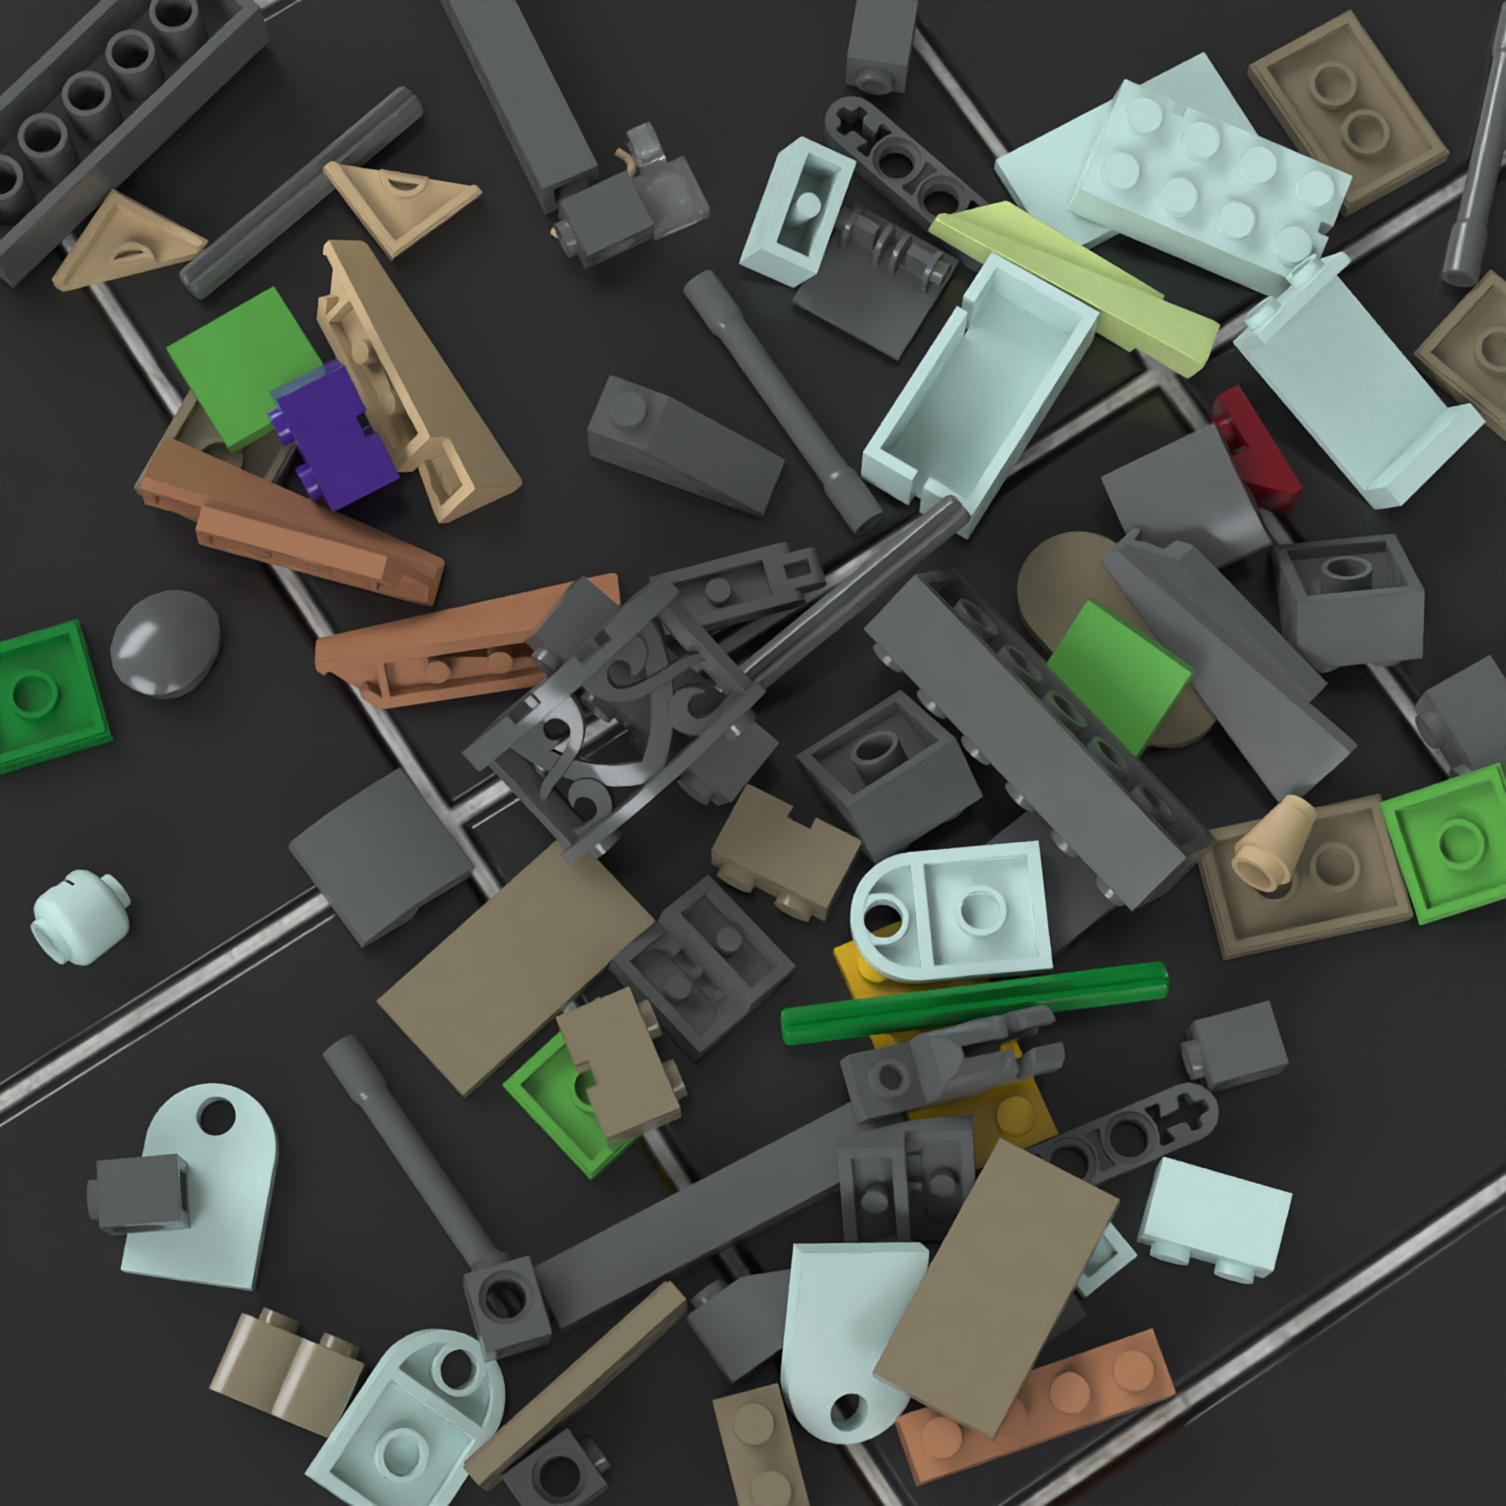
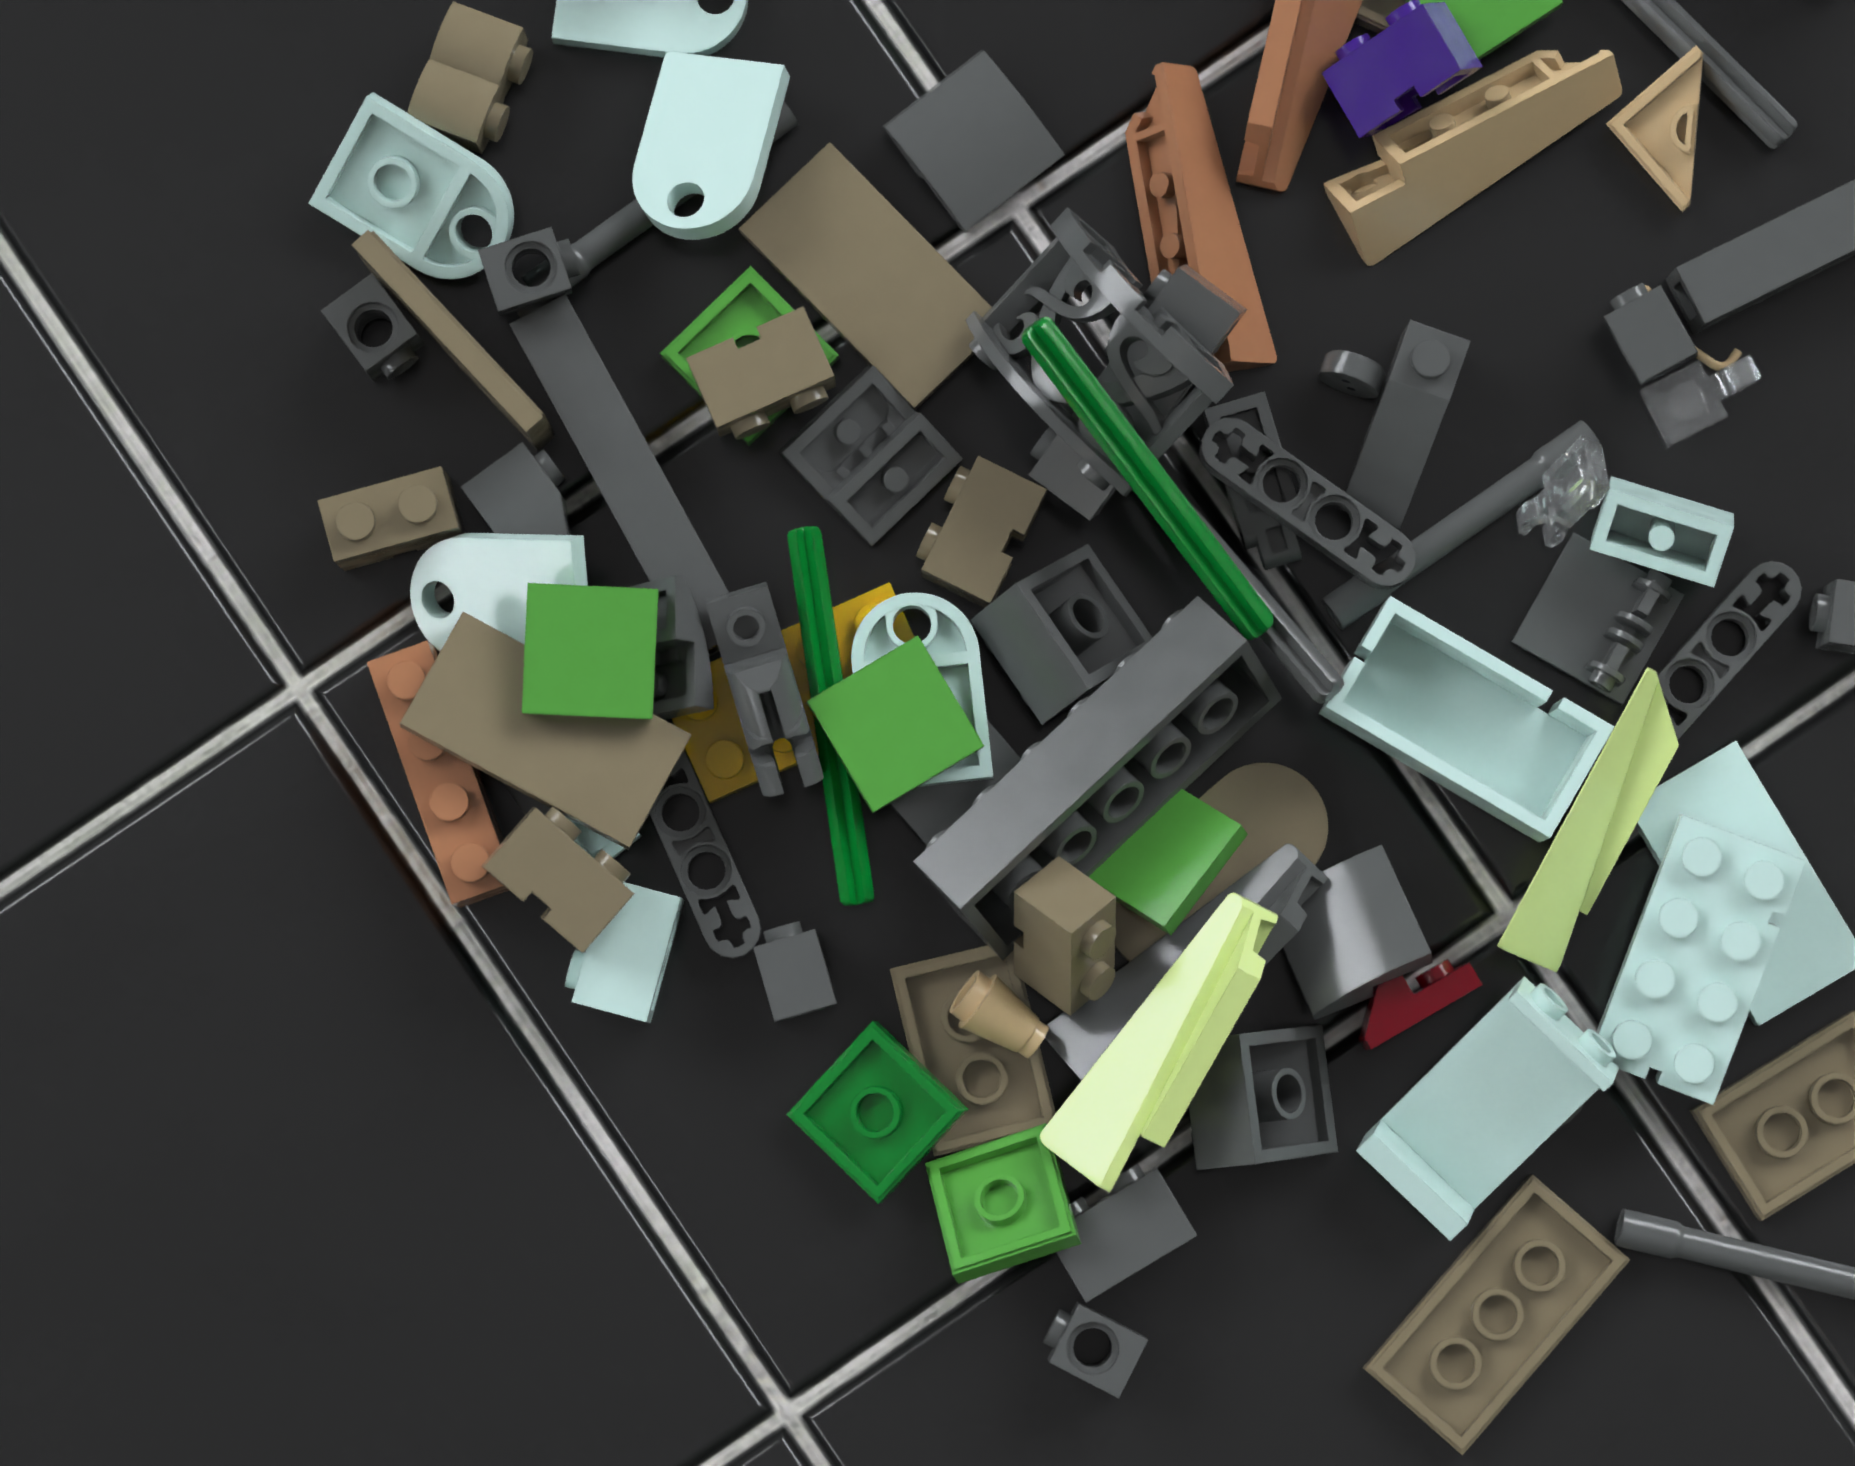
camera: 90 degrees right, 10 degrees up
(367, 1122) = (708, 138): none -> light aqua tile
(633, 496) = (1352, 374): none -> dark grey tile
(747, 667) = (1147, 478): none -> green axle
(758, 291) = (1570, 489): none -> clear plate
(771, 540) = (1300, 512): none -> dark grey beam
(917, 1235) = (590, 651): none -> bright green tile
(988, 932) = (895, 724): none -> bright green tile
(1135, 1289) = (547, 861): none -> dark tan brick
(1203, 766) = (1065, 936): none -> dark tan brick
(1314, 674) = (1164, 1048): none -> yellowish green wedge
(1371, 969) = (877, 1112): none -> green tile

